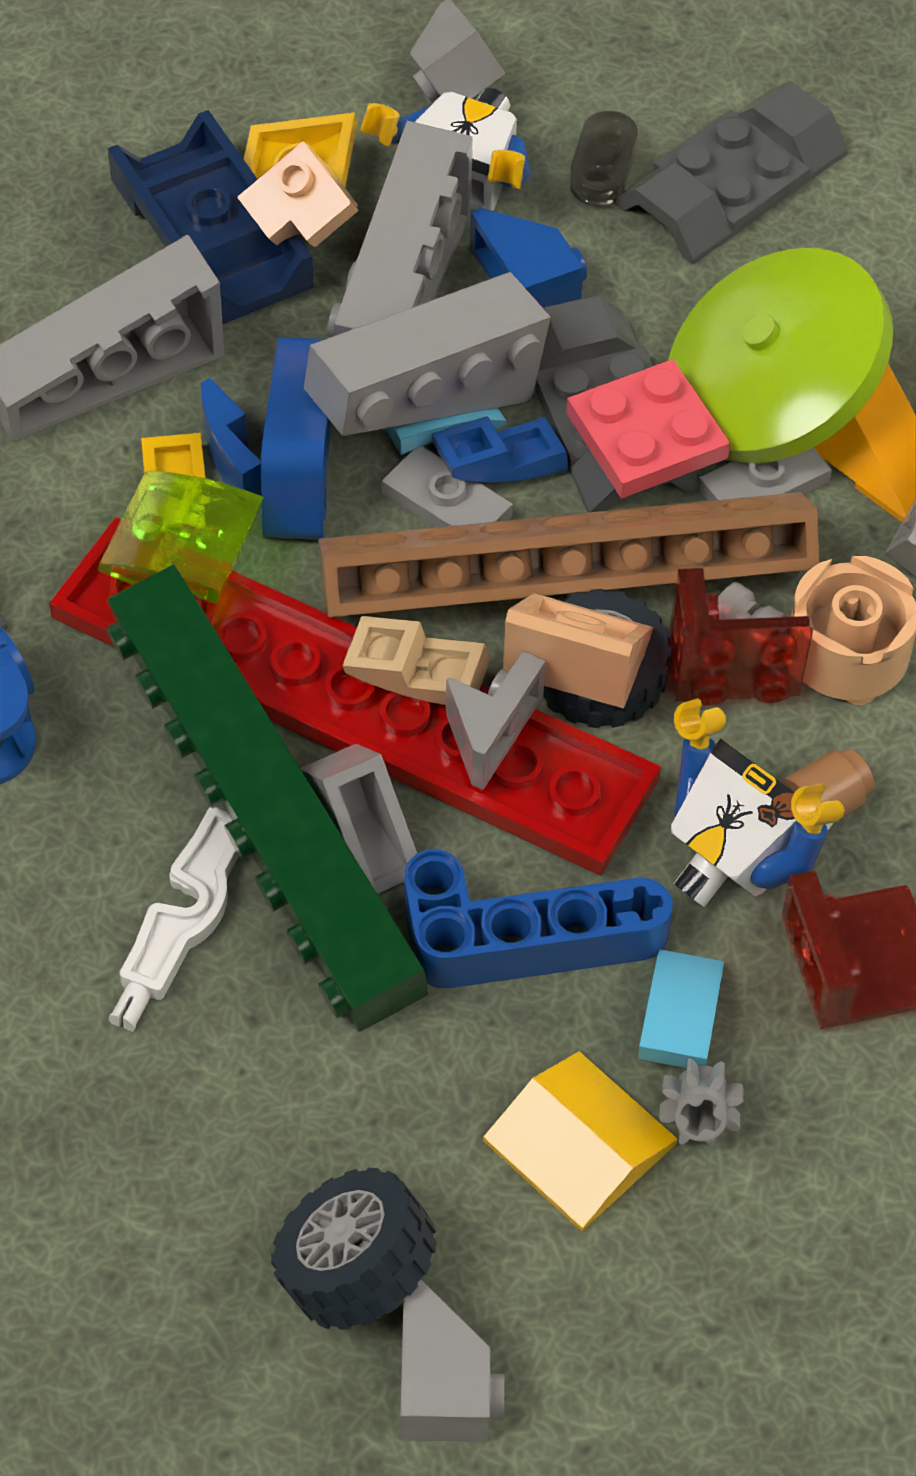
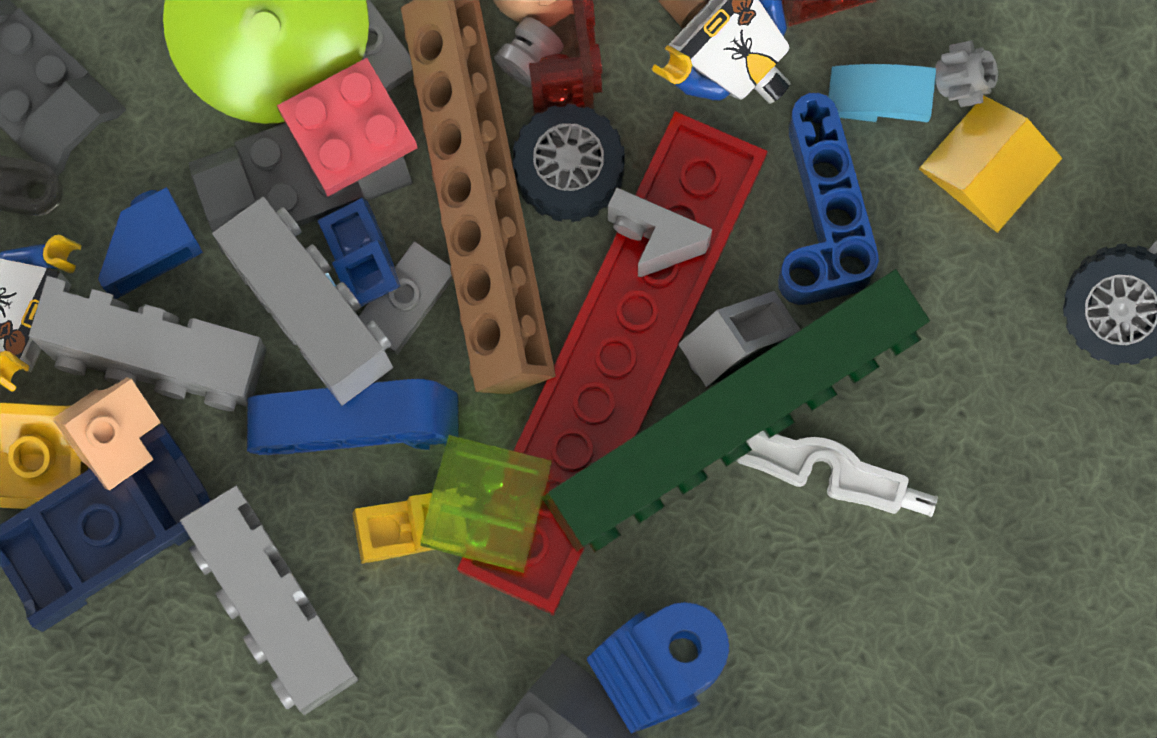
camera: 90 degrees left, 20 degrees up
(227, 439) = (352, 490): blue slope -> none
(405, 661) = (599, 300): tan slope -> none
(582, 647) = (580, 168): light nougat slope -> none

